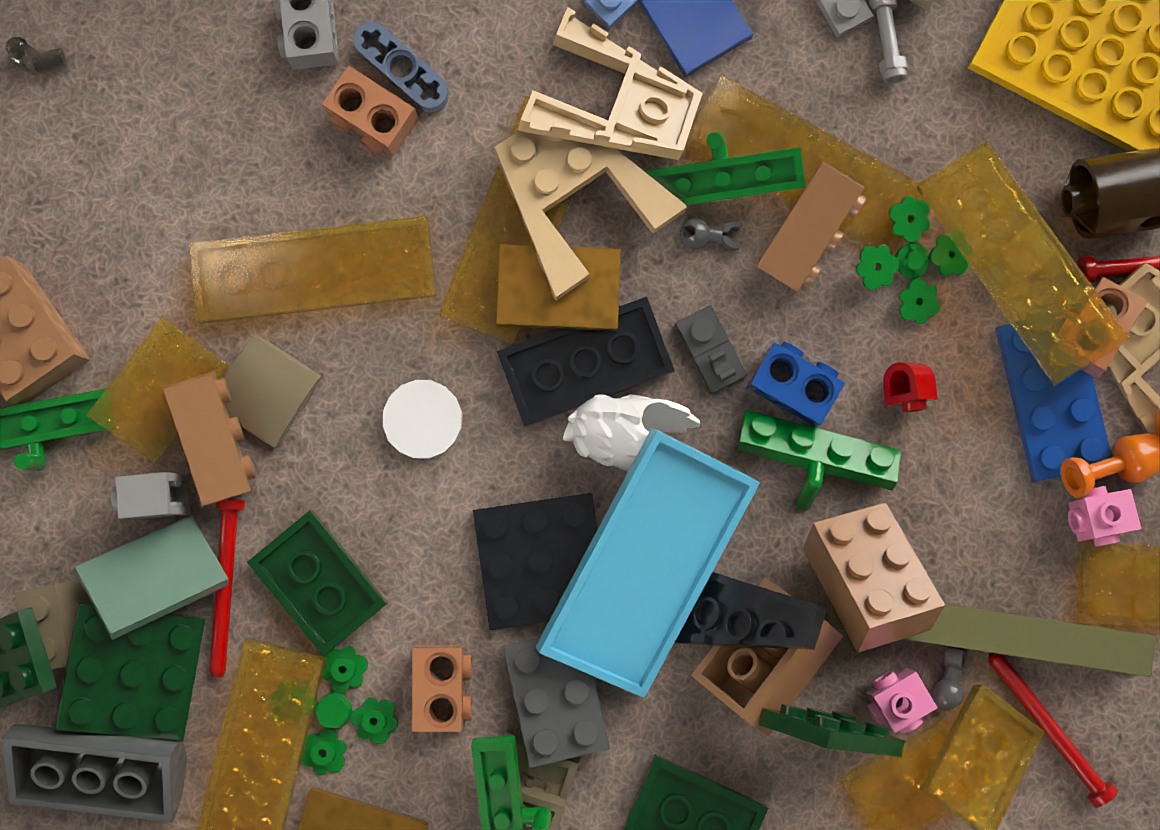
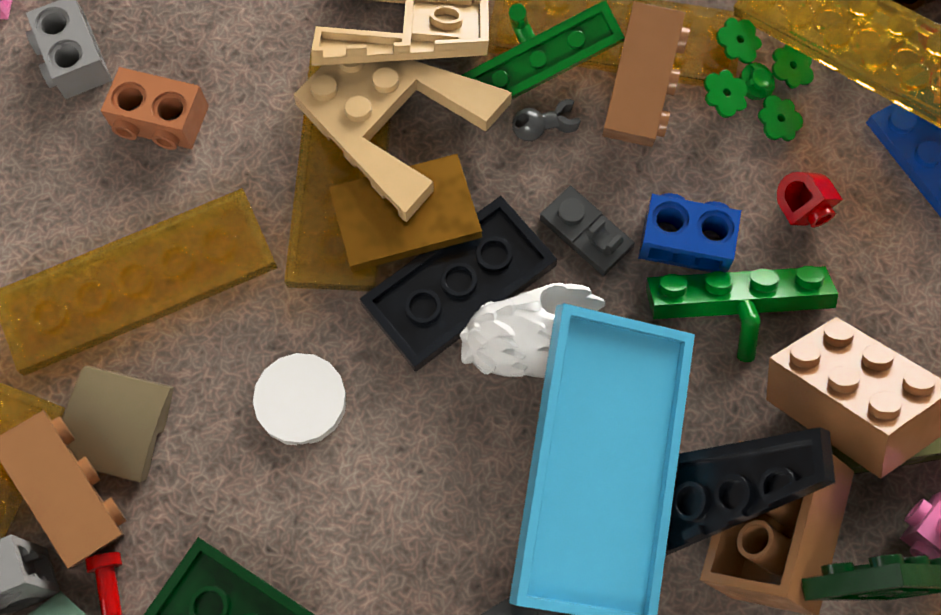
camera: 15 degrees left, 15 degrees down
(387, 41) = (166, 49): sand blue beam -> none
(531, 555) = (468, 509): black plate -> none

